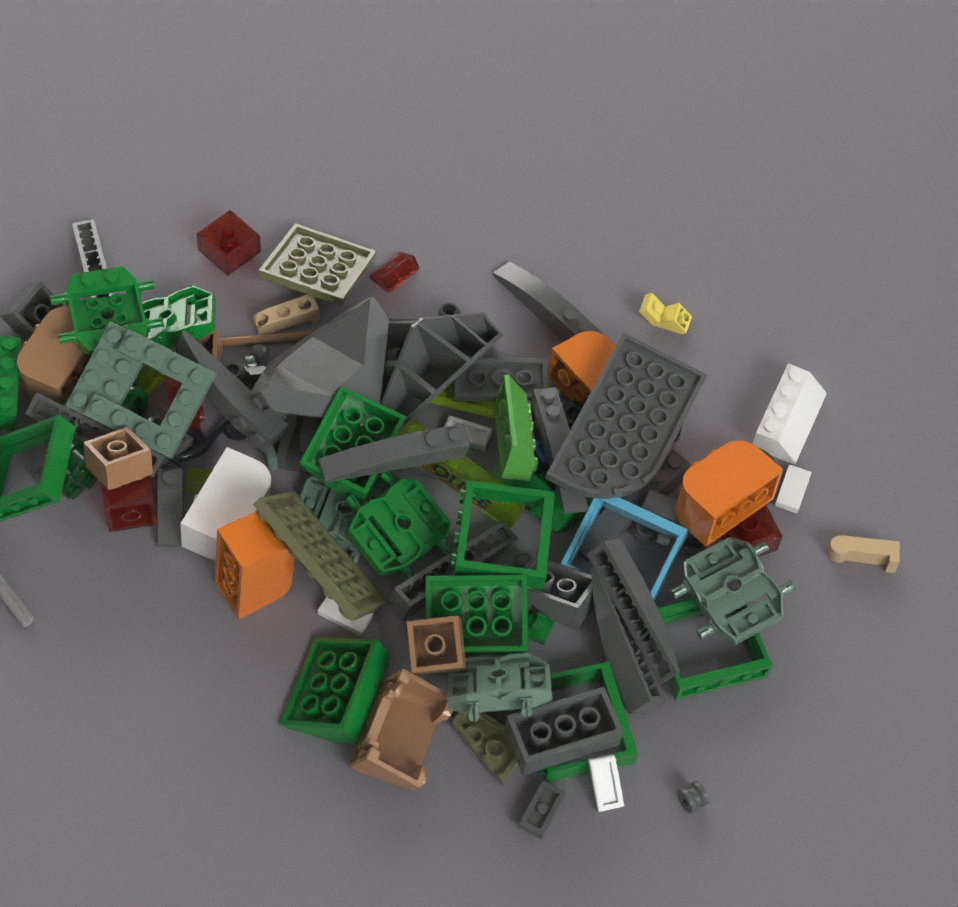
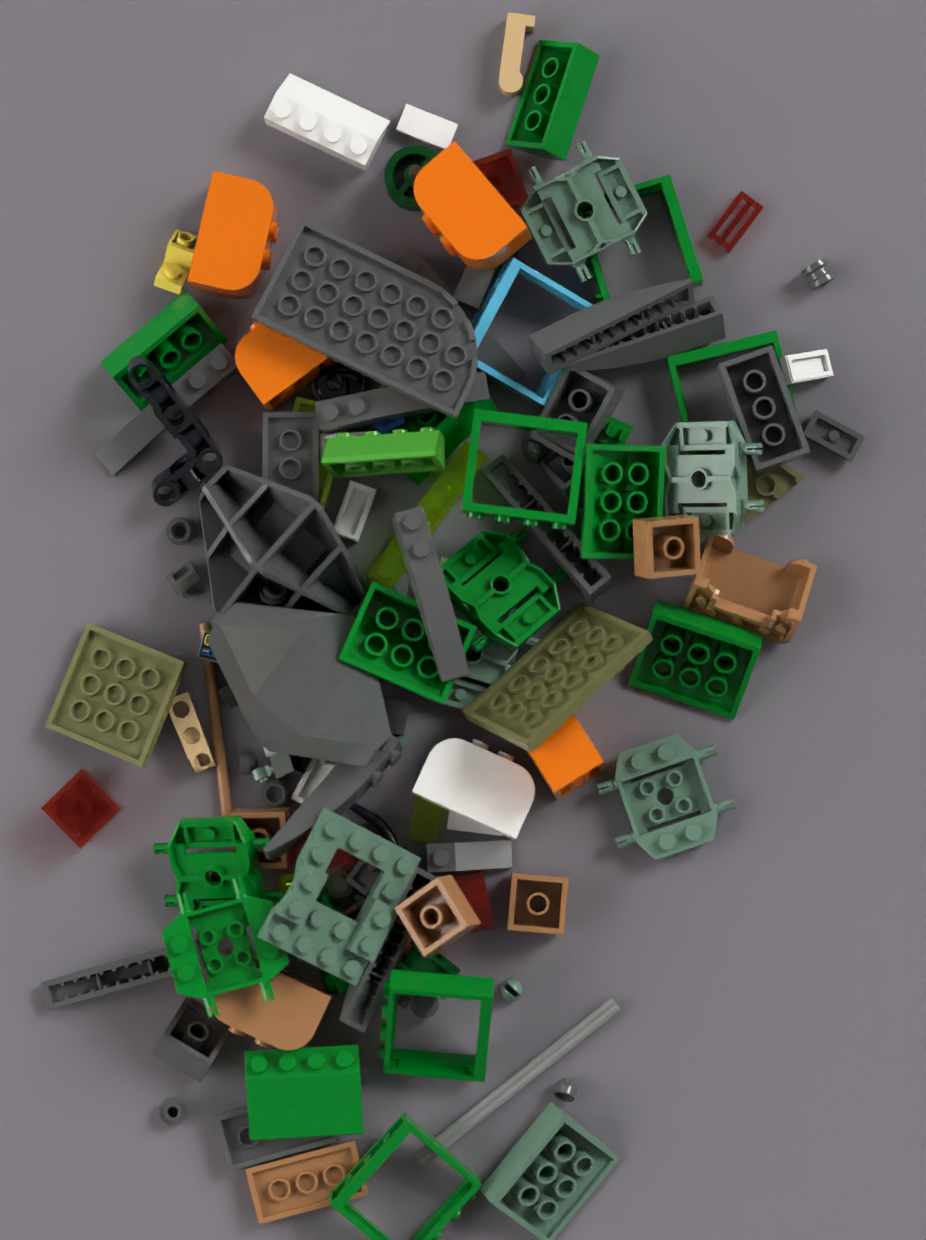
camera: 85 degrees left, 30 degrees up
(53, 544) = (516, 985): none -> sand green hinge
(124, 556) = (537, 903): none -> medium nougat brick
(207, 645) = (688, 791): none -> sand green piece
(395, 271) = (112, 599): clear red slope -> none
(407, 311) = (184, 578): none -> flat silver tile
(529, 306) = (190, 469): none -> black beam
(596, 299) = (170, 340): none -> green slope
(694, 338) = (234, 237): none -> orange brick
(741, 722) = (721, 240): none -> clear red tile
(830, 581) = (552, 99): none -> green slope

